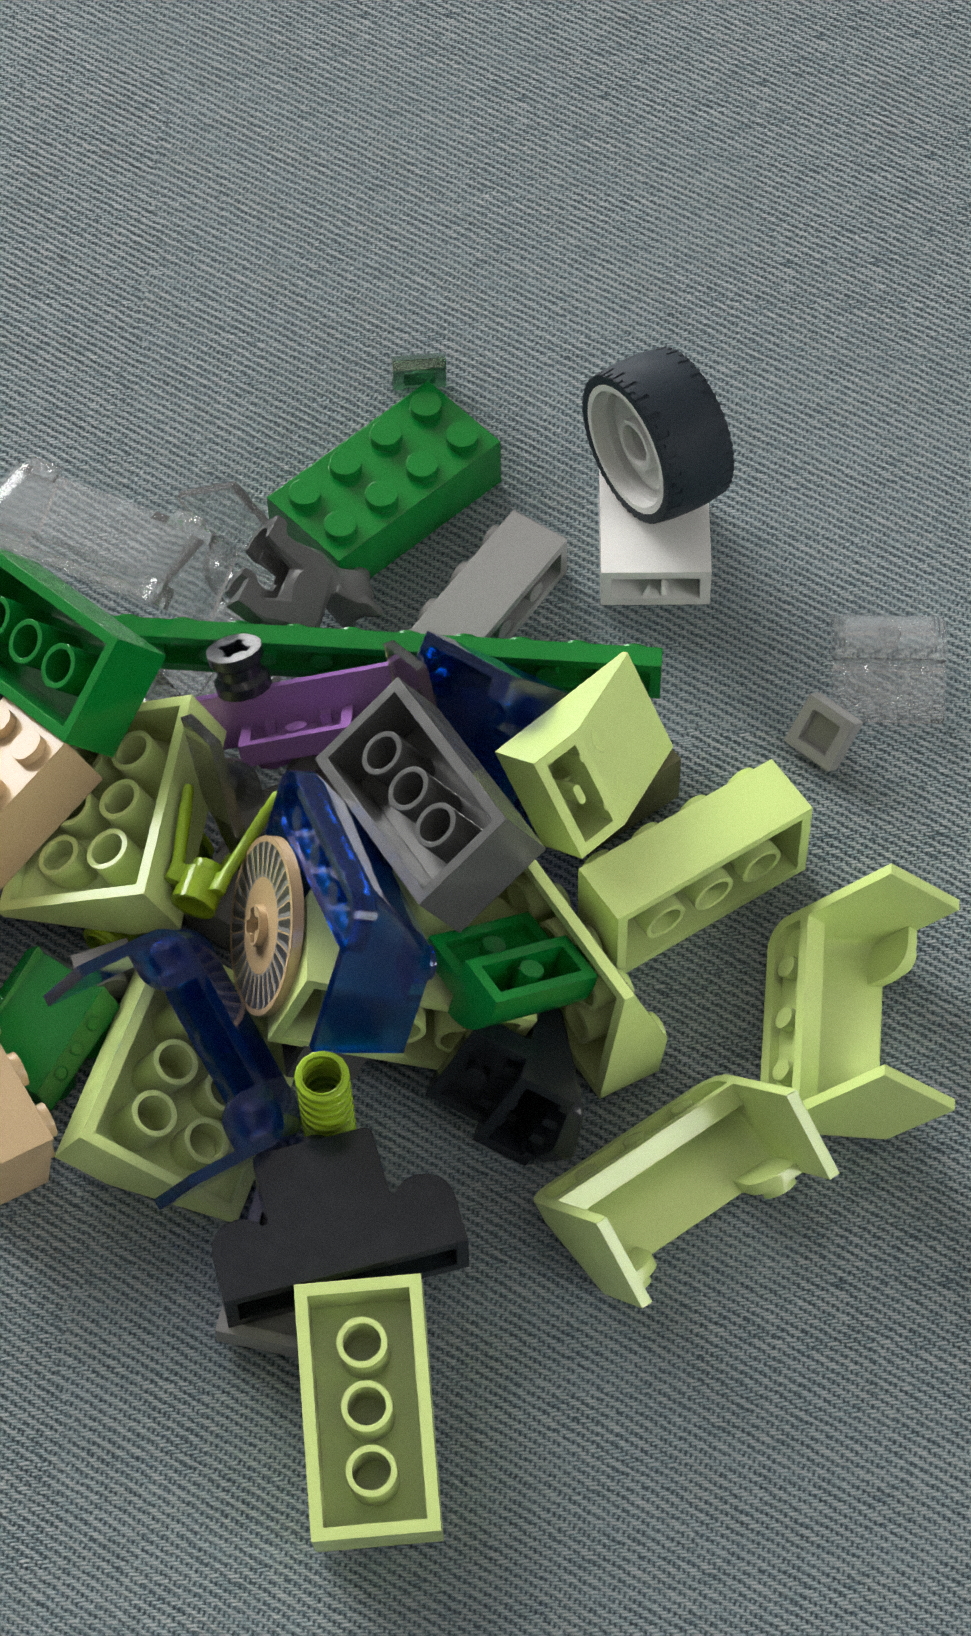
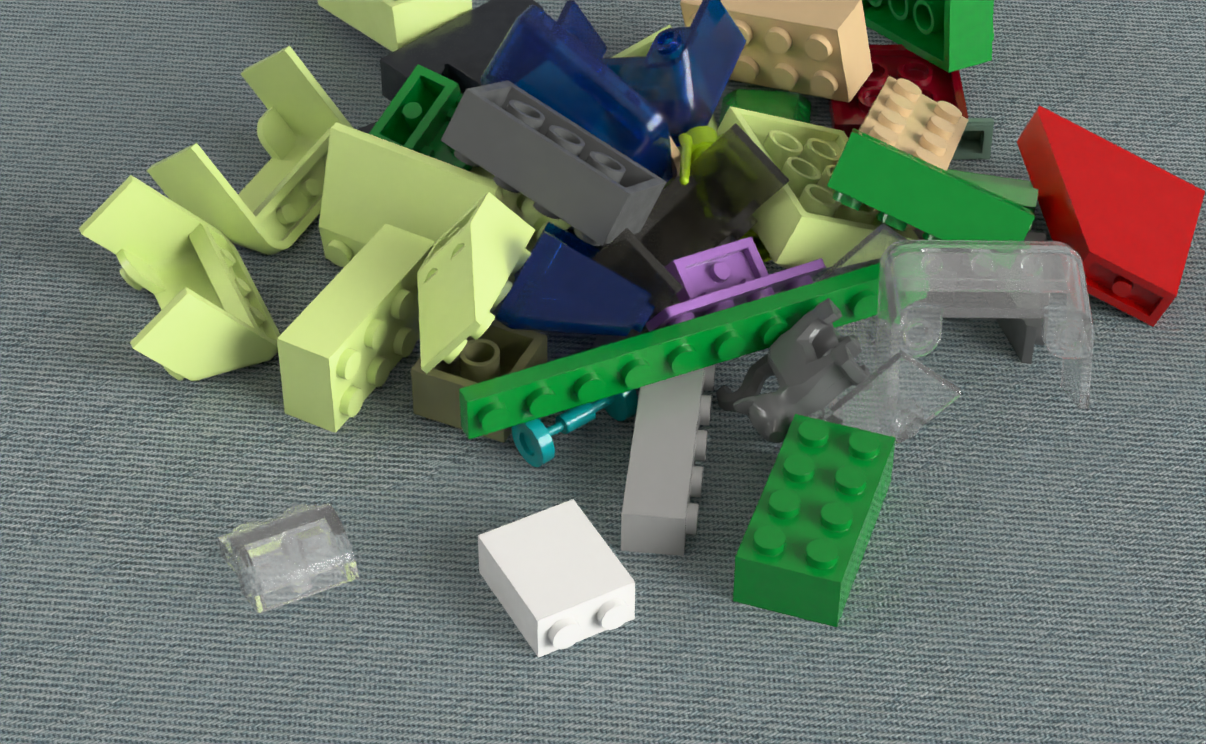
camera: 150 degrees right, 15 degrees down
(238, 667) = (791, 266): black wheel -> none
(416, 369) = (864, 601): clear green slope -> none
(658, 434) = (574, 529): black wheel -> none
(823, 731) = (314, 485): light grey plate -> none

